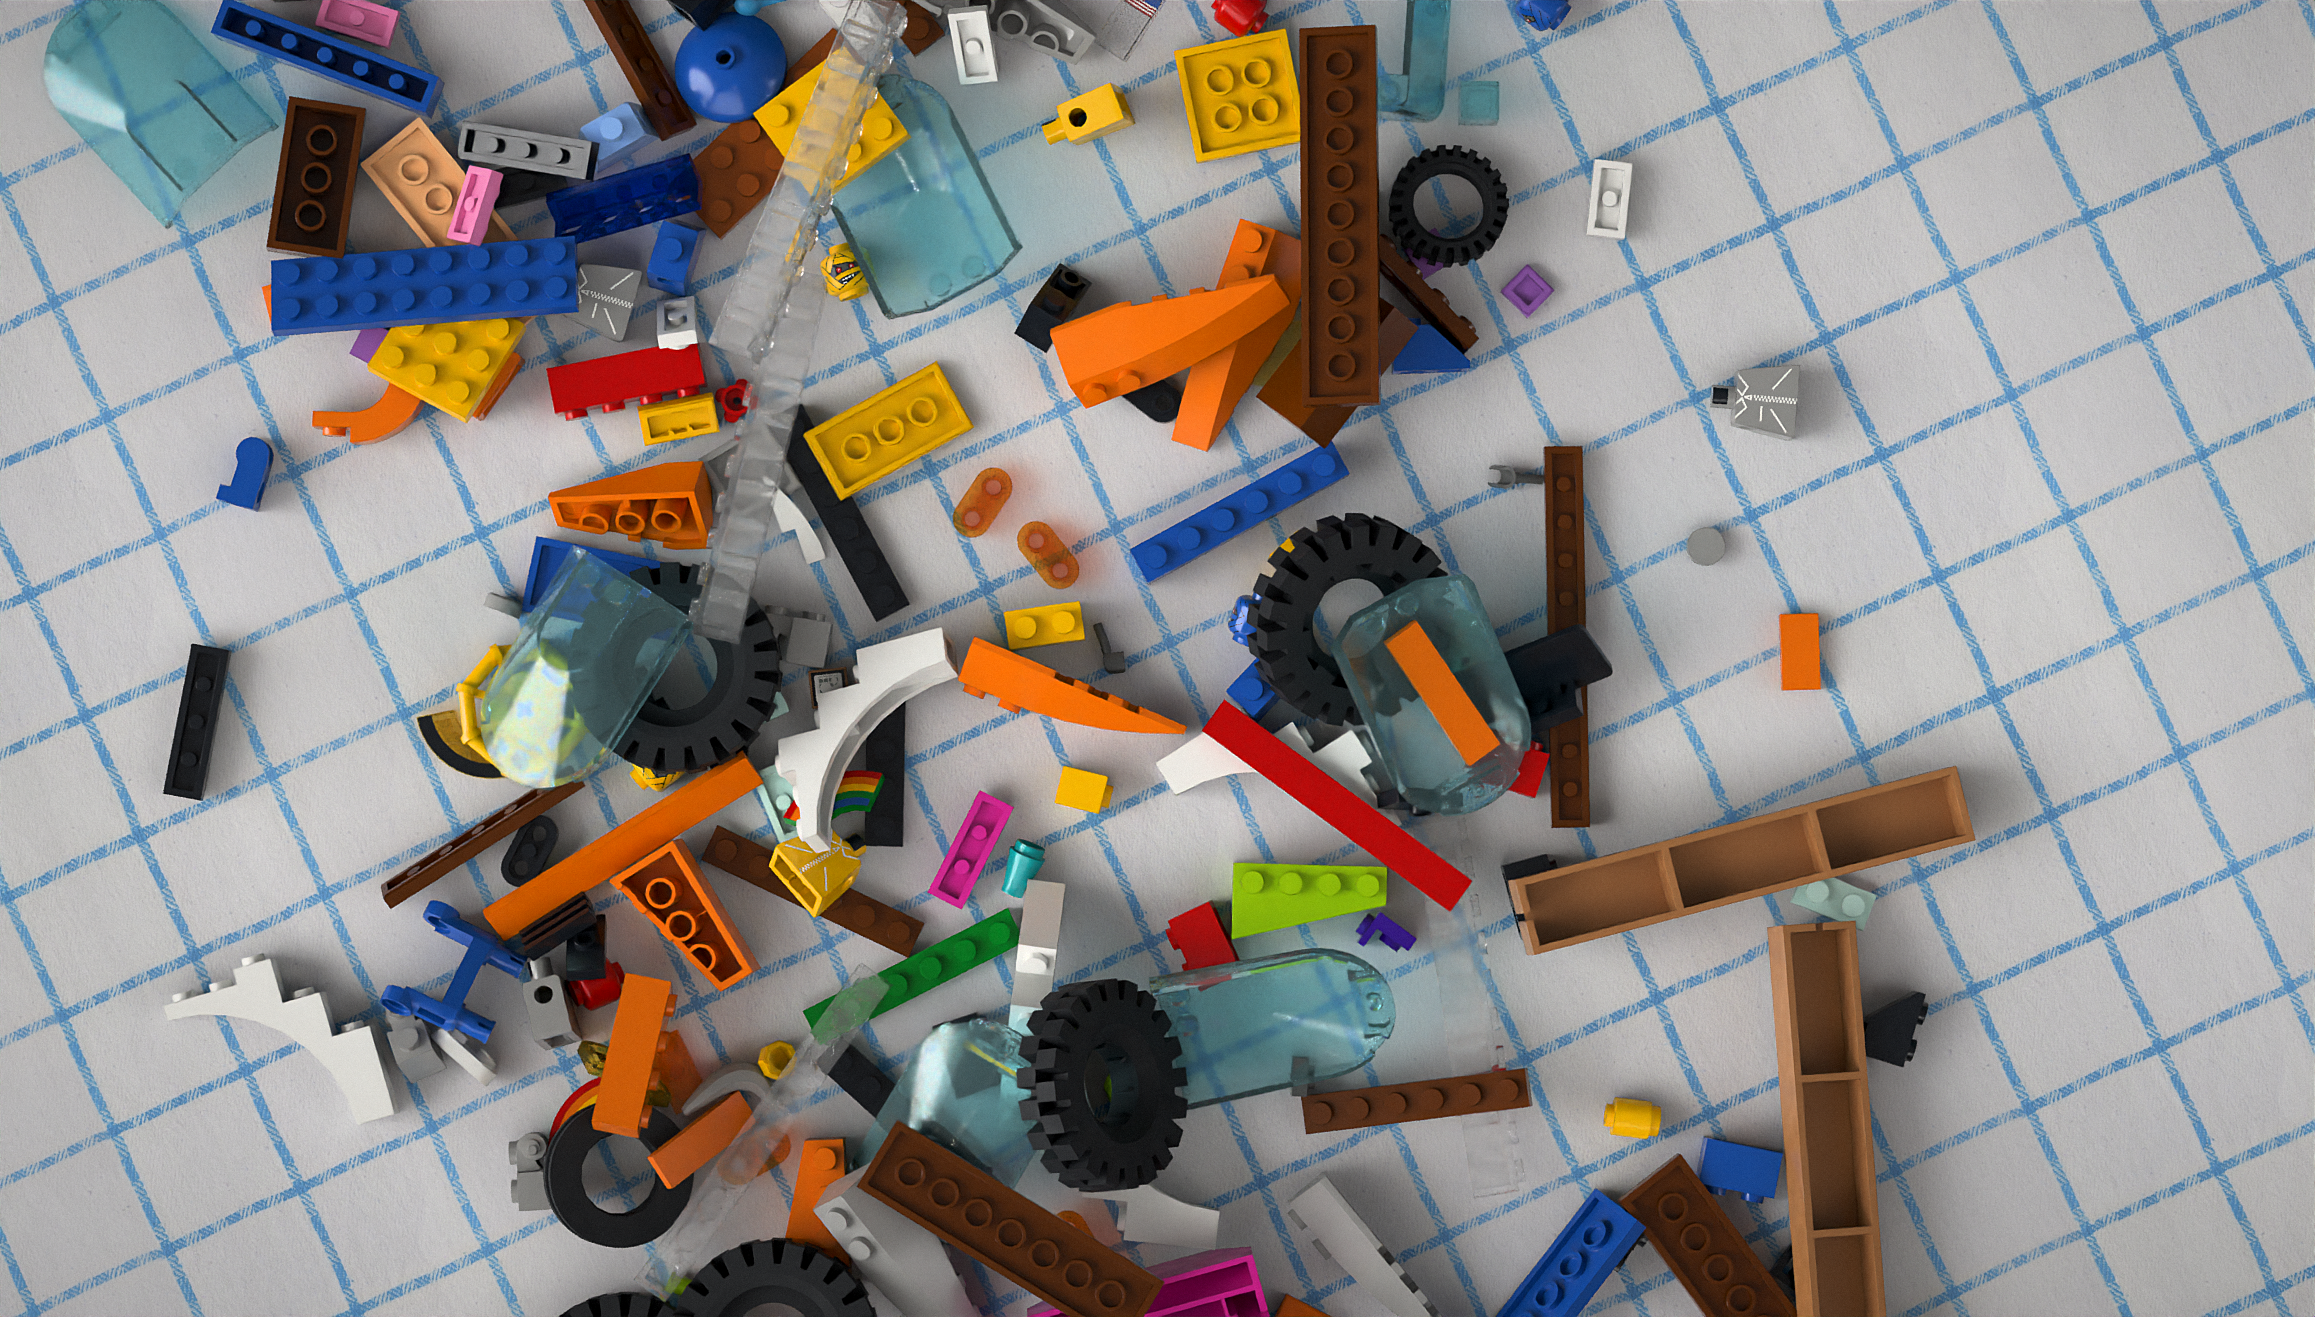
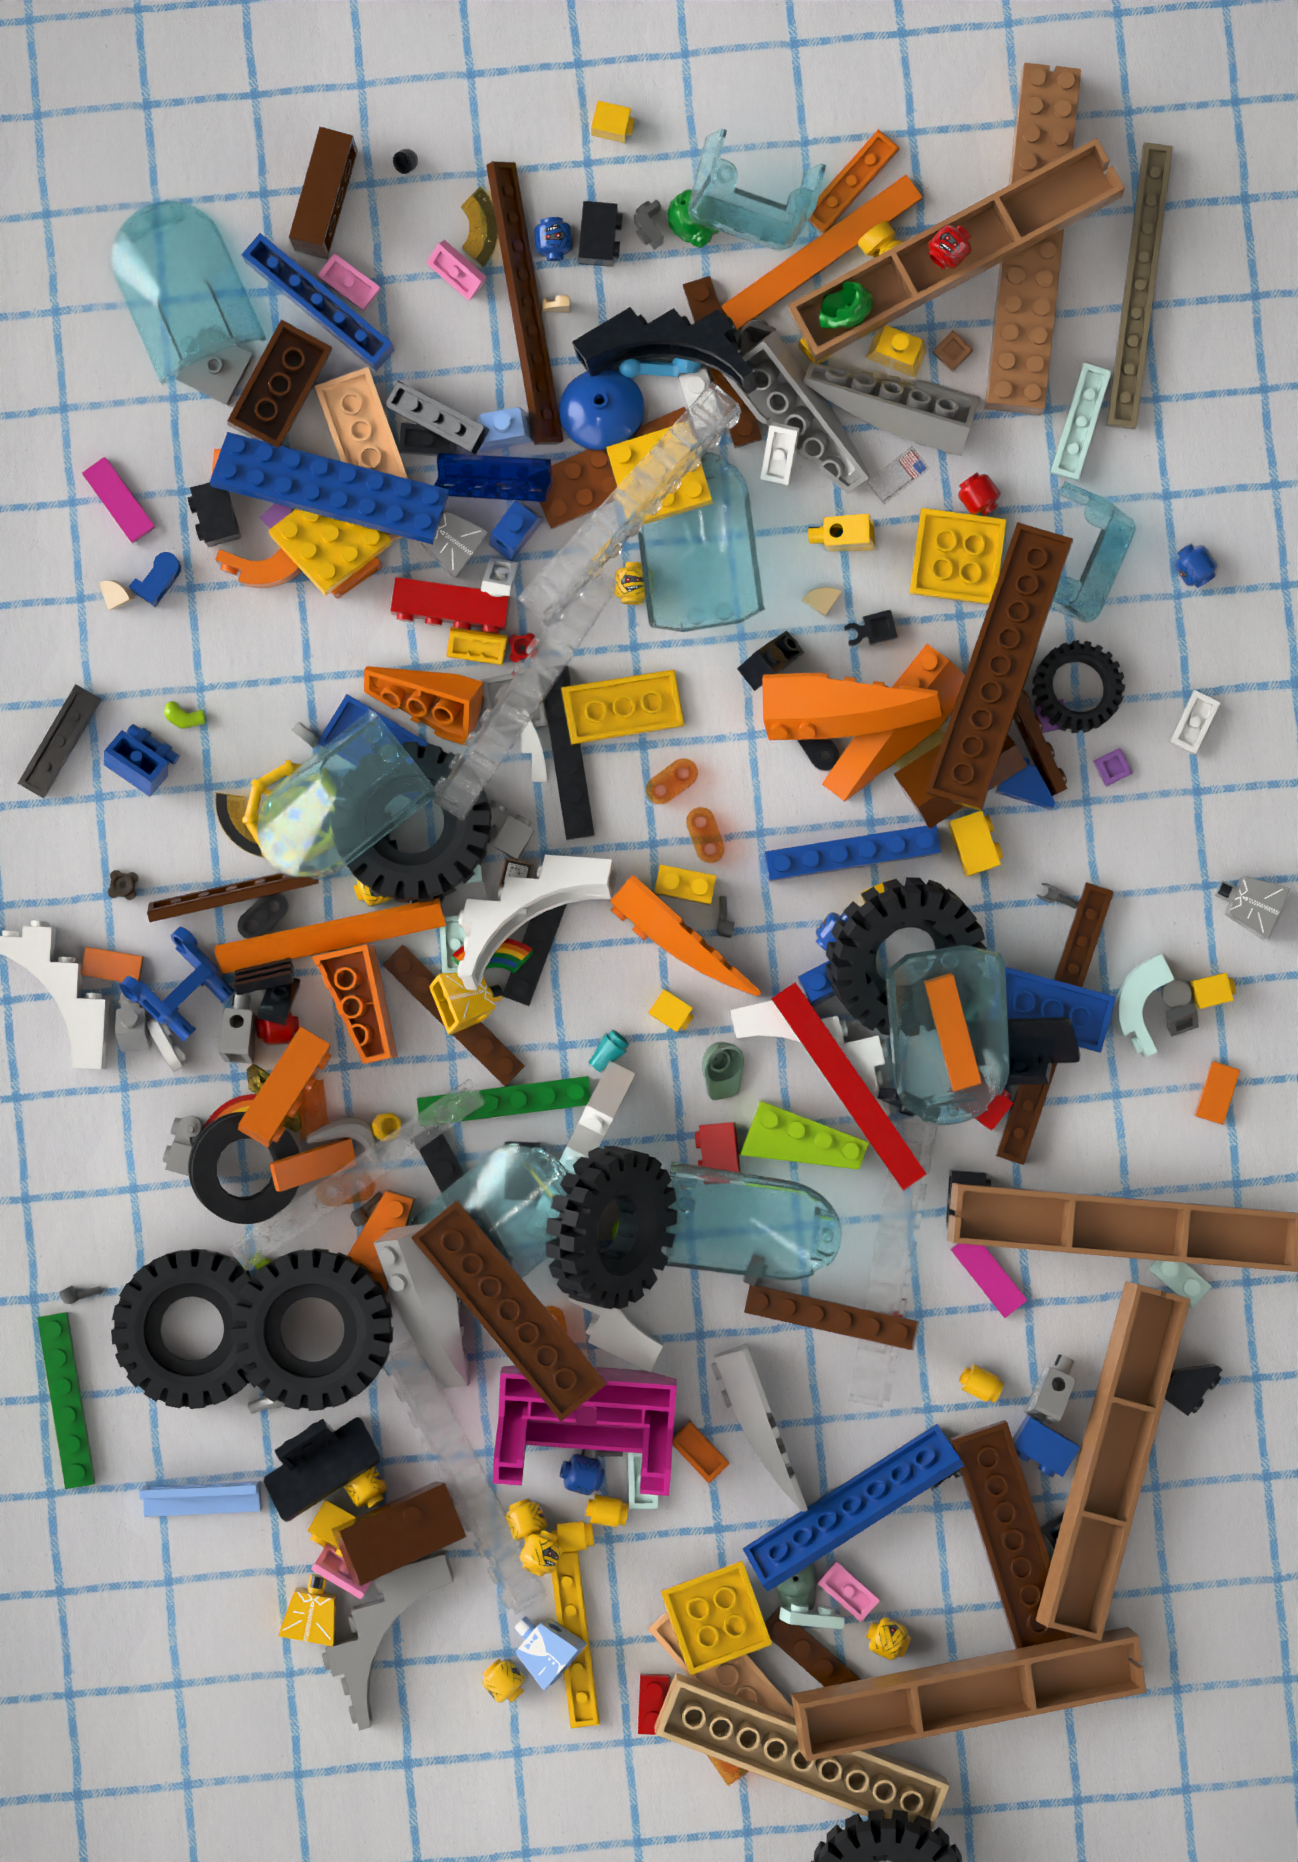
camera: 25 degrees right, 0 degrees up
(164, 393) = (118, 500): none -> dark pink tile
(202, 512) = (116, 594): none -> tile
(234, 191) = (217, 374): none -> light grey plate
(292, 369) = (215, 515): none -> black brick
(301, 713) = (140, 758): none -> blue brick
(333, 882) = (115, 885): none -> dark brown plate
(341, 640) = (180, 718): none -> lime arm
(360, 979) = (111, 964): none -> orange tile
(475, 205) = (385, 443): bright pink plate -> none
(782, 1182) = (359, 1215): none -> dark grey hand
(970, 849) = (576, 1025): dark pink plate -> none
(1090, 208) = (821, 599): none -> tan tile
(1171, 220) = (876, 627): none -> black plate
(1175, 842) = (722, 1070): none -> sand green cap
(1388, 446) = (974, 843): none -> yellow brick
(1392, 933) = (855, 1192): dark purple bracket -> none
(1478, 103) = (1125, 621): clear light blue brick -> none
(1537, 610) = (1046, 998): none -> blue plate
(1597, 981) = (990, 1277): none -> dark pink tile
(1651, 571) = (1131, 999): none -> light aqua arch
(1722, 1112) = (1045, 1401): none -> light grey torso
(1723, 575) = (1182, 1019): none -> dark grey plate
(1748, 526) = (1212, 990): none -> yellow brick

